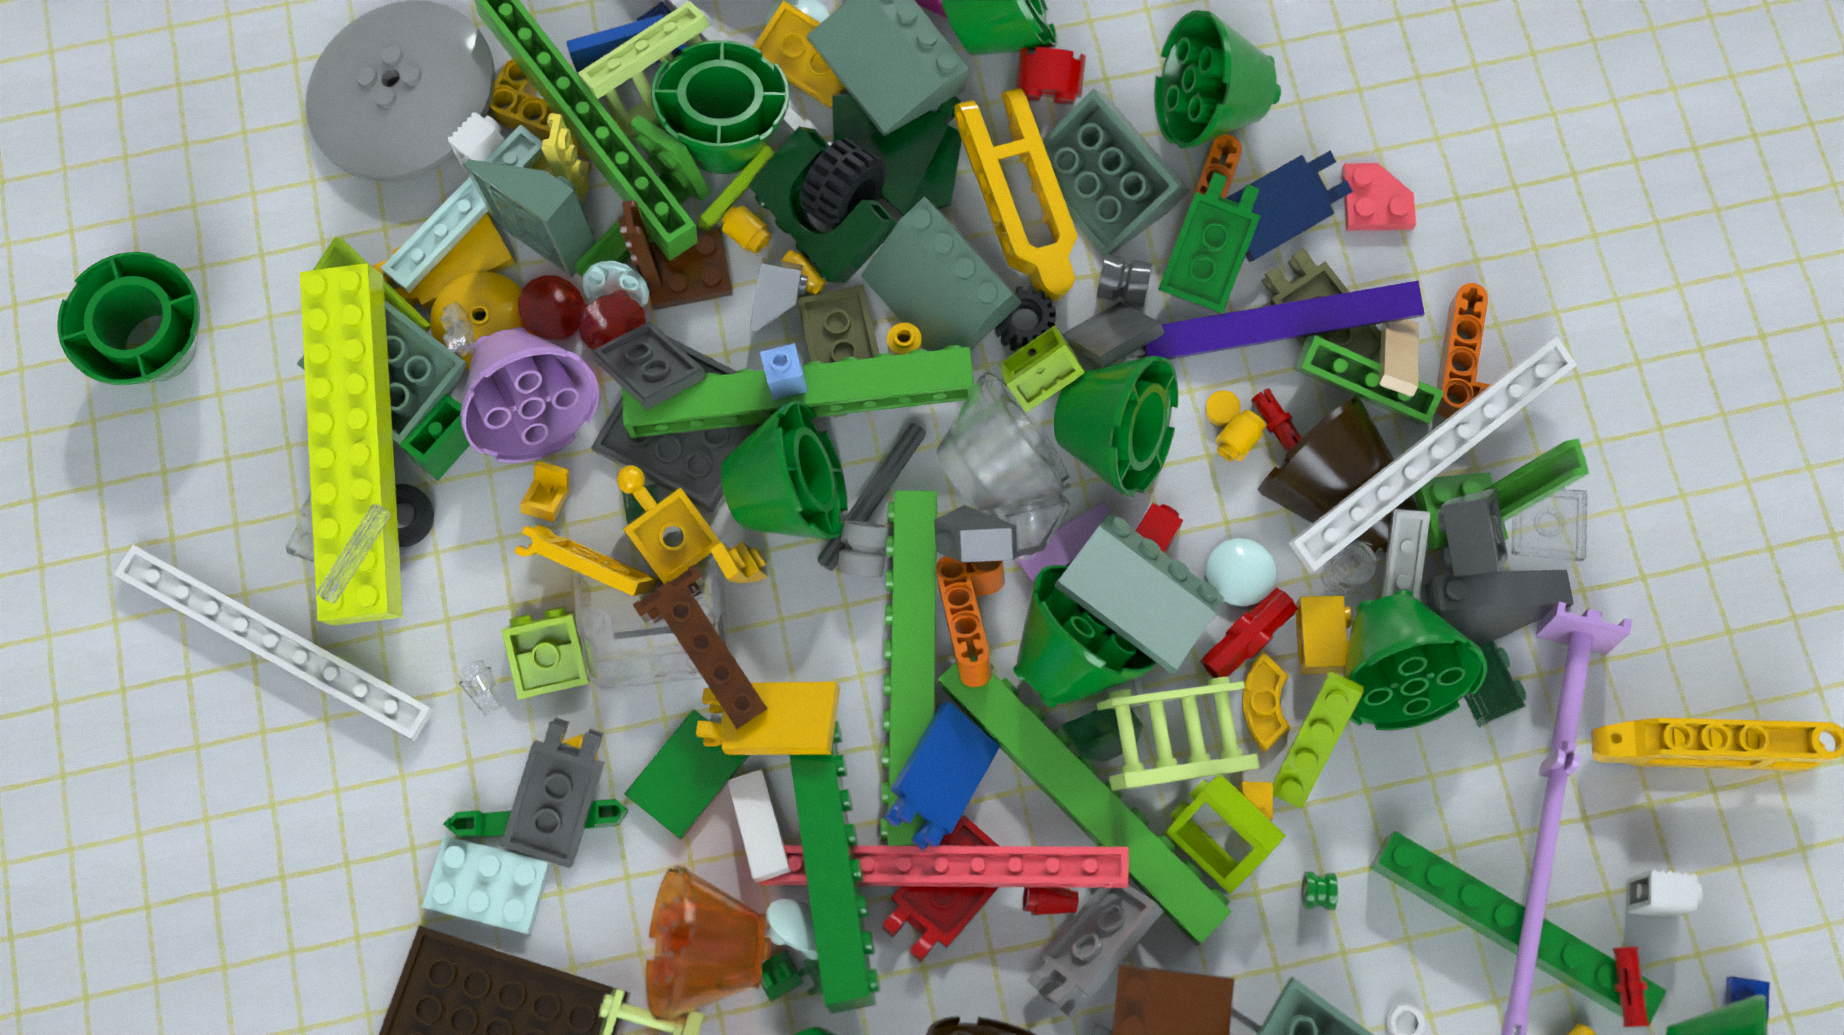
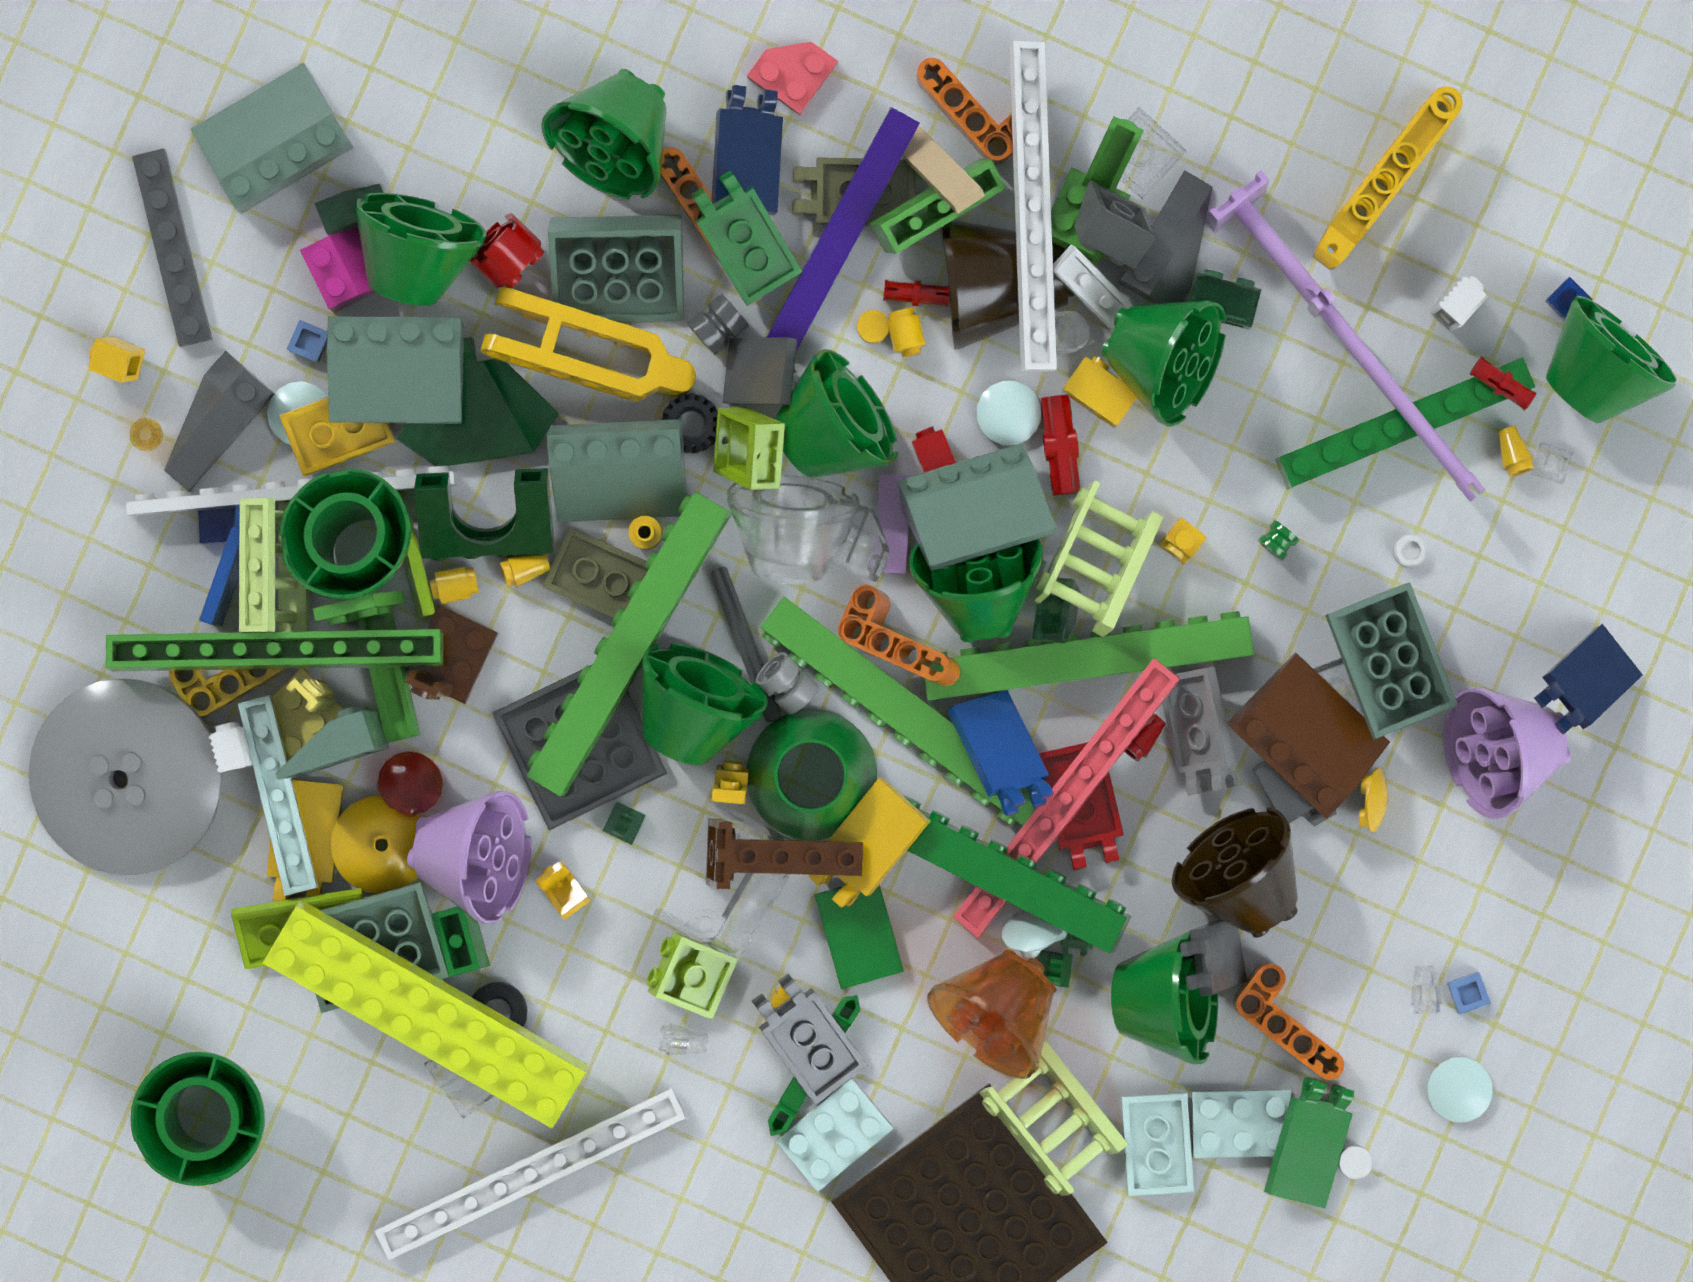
camera: 55 degrees left, 15 degrees up
(353, 553) = (525, 1067): clear axle -> none
(459, 330) = (385, 868): clear plate -> none
(586, 561) = (645, 897): yellow tile -> none
(609, 318) = (460, 746): clear red dish -> none
(612, 276) = (435, 724): light aqua dish -> none
(648, 365) = (522, 743): dark grey tile -> none
(648, 529) = (651, 831): yellow plate -> none
(759, 826) = (938, 907): white tile -> none
(776, 290) = (530, 600): slope -> none
(784, 371) = (614, 648): light blue brick -> none
(831, 658) = (775, 743): none -> green cone
(840, 181) = (482, 486): black tyre -> none
(975, 536) = (843, 596): dark grey slope -> none
(1240, 816) = (1189, 561): lime window -> none
(1262, 702) = (1115, 473): yellow tile -> none
(1316, 739) = (1176, 463): lime plate -> none

